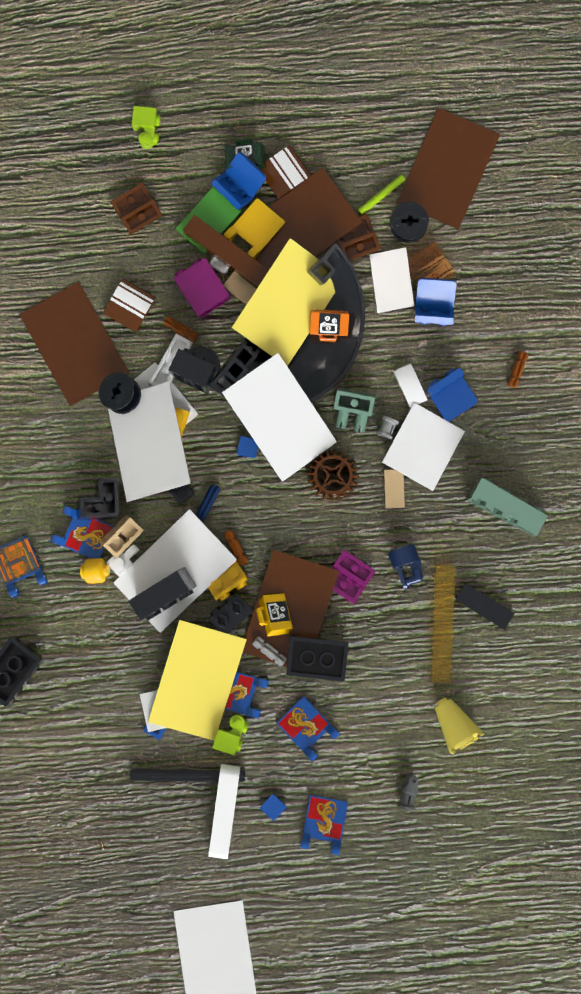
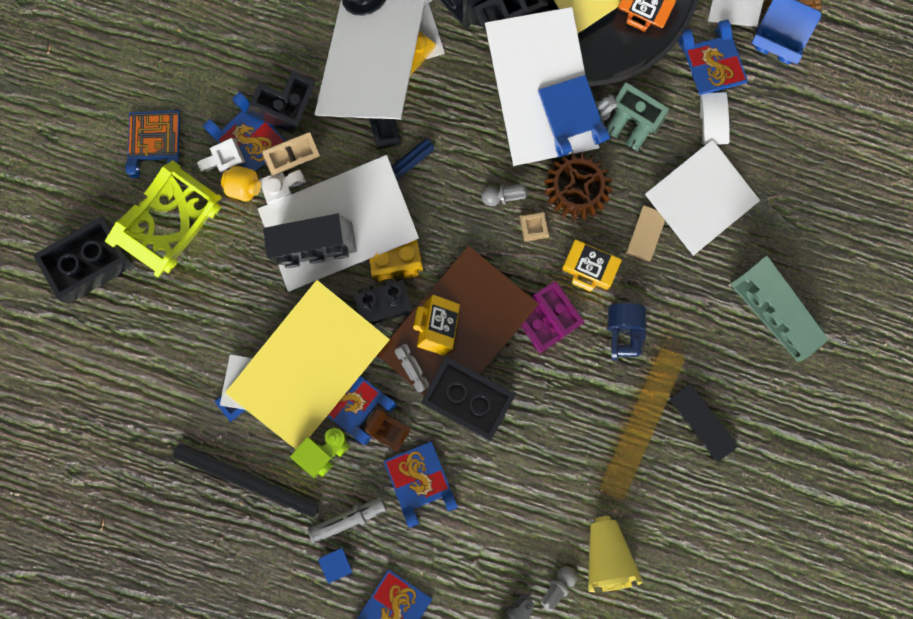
camera: 20 degrees right, 5 degrees down
(44, 595) = (127, 232): none -> neon yellow fence
(74, 556) = (223, 156): none -> white plate
(224, 811) = (270, 544): white beam -> none
(236, 547) = (423, 226): dark orange axle -> none
(247, 447) = (487, 113): blue tile -> none
(270, 701) = (387, 430): none -> reddish brown bracket
(275, 506) = (491, 195): none -> light grey axle
(275, 766) = (356, 516): none -> light grey pin
(307, 427) = (572, 112): none -> blue flag
(313, 516) = (534, 226): none -> tan tile
(328, 414) = (606, 106): none -> light grey axle
(364, 528) = (591, 265): none -> piece
(387, 427) = (667, 156): light grey bush -> none
(393, 344) = (714, 62): none -> flag
(432, 750) = (566, 578): none -> light grey axle
(451, 394) = (762, 147): blue bracket -> none
(517, 369) = (854, 152): dark orange axle -> none

